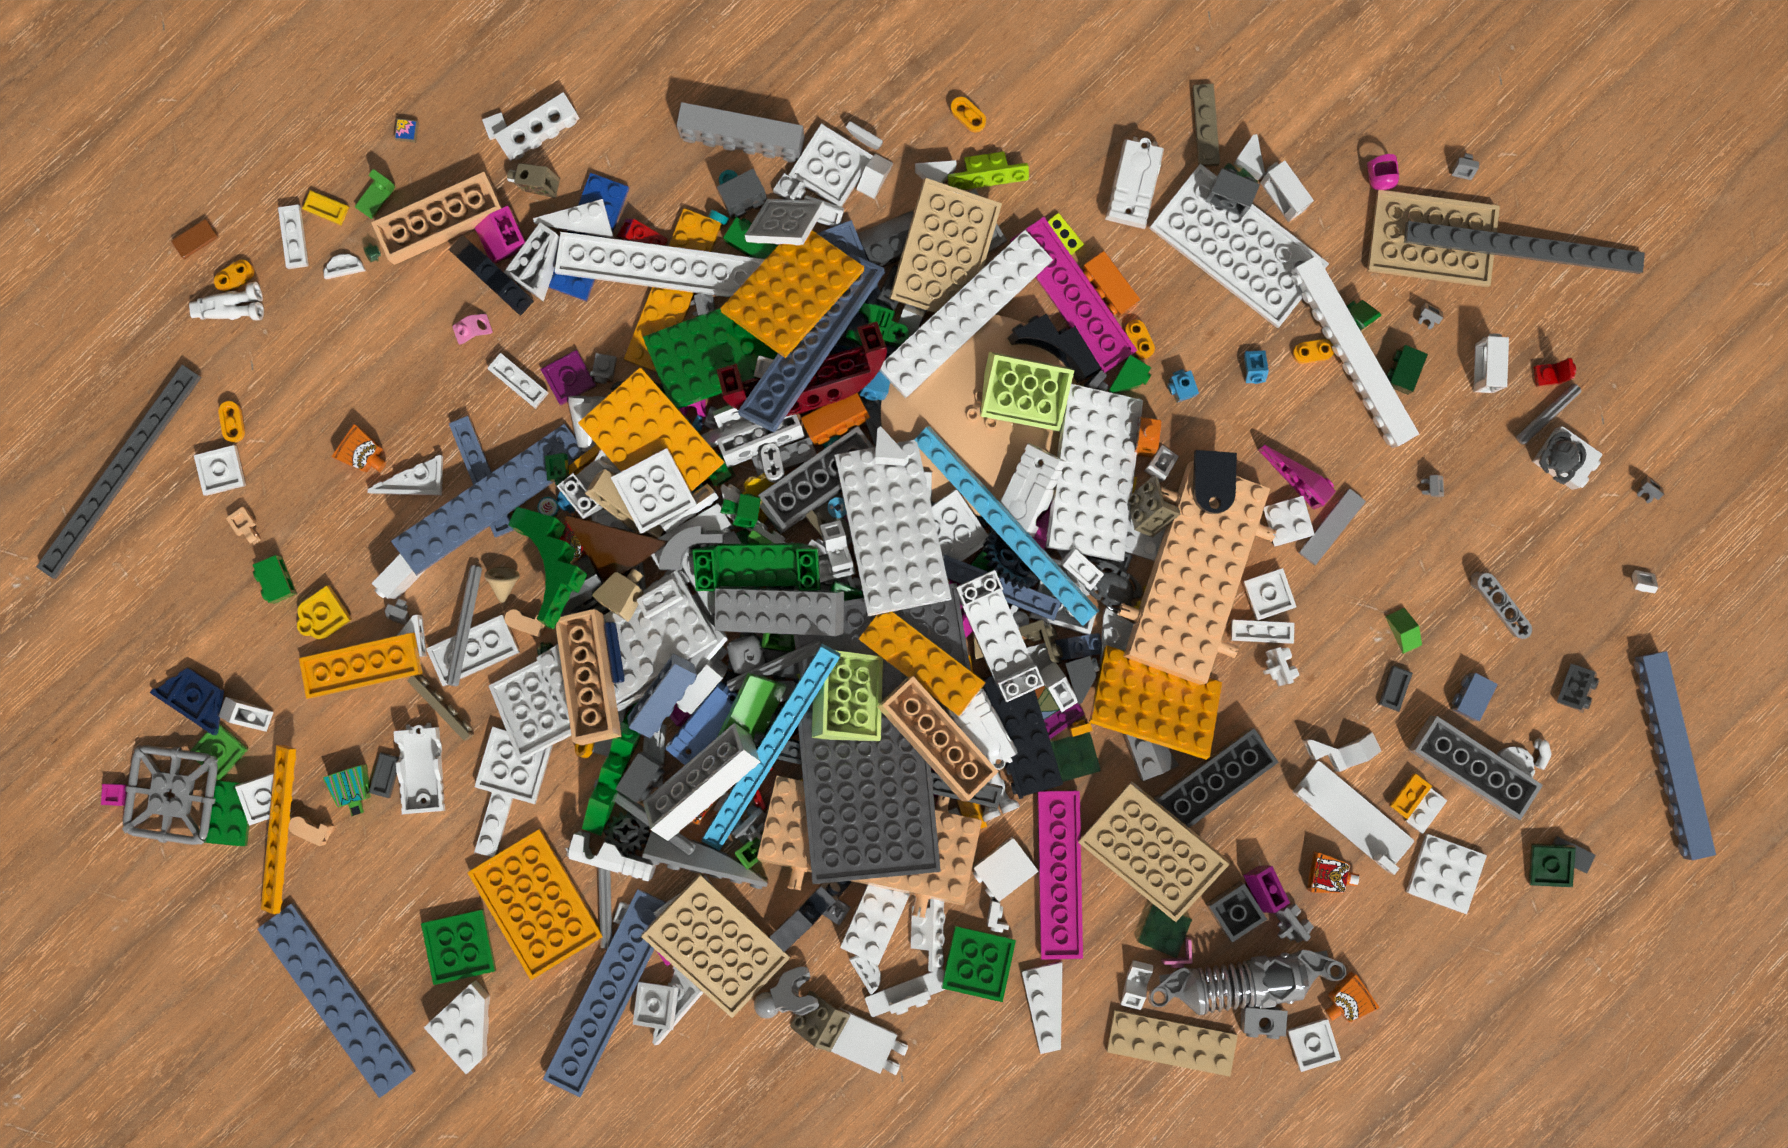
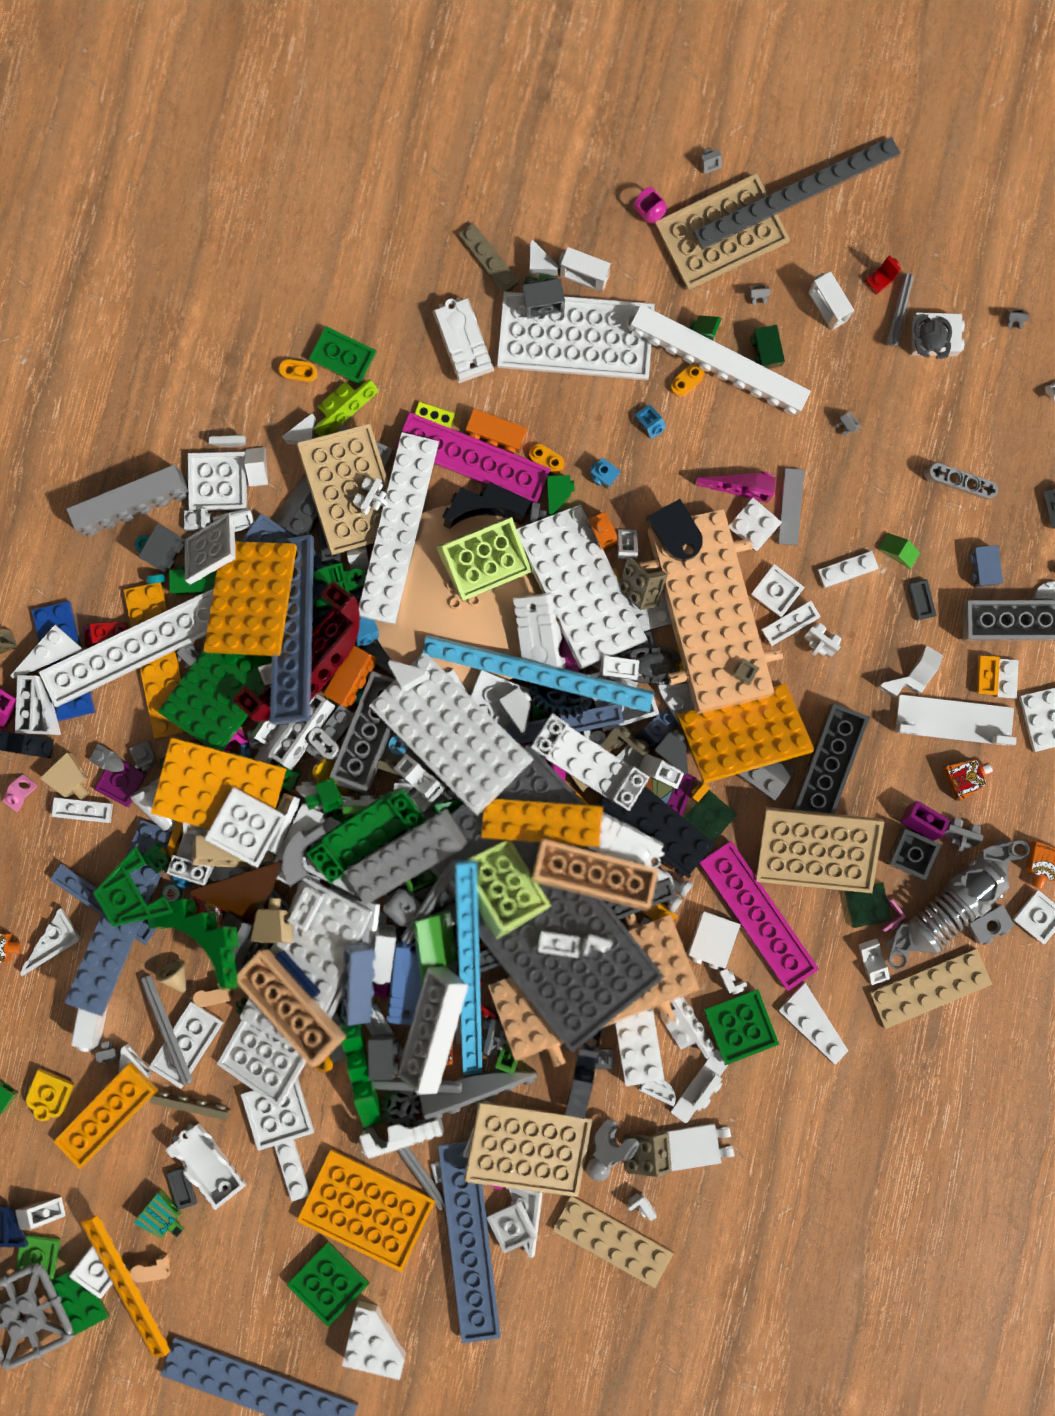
camera: 25 degrees left, 0 degrees up
(502, 482) = (122, 898): none -> green wing
(524, 342) = (67, 777): none -> tan torso
(569, 349) = (106, 759): none -> light grey plate
(736, 1078) = (613, 1241): none -> tan plate
(785, 1068) = (645, 1207): none -> white bracket
(865, 780) = (559, 944): none -> white plate
(901, 801) = (599, 943): none -> white bracket
(966, 545) = (517, 708): none -> white slope
(967, 263) = (374, 488): none -> white hips
(1017, 126) = (343, 355): none -> green plate
(1193, 647) = (745, 671): none -> dark tan tile
(1346, 617) = (848, 569): none -> white plate

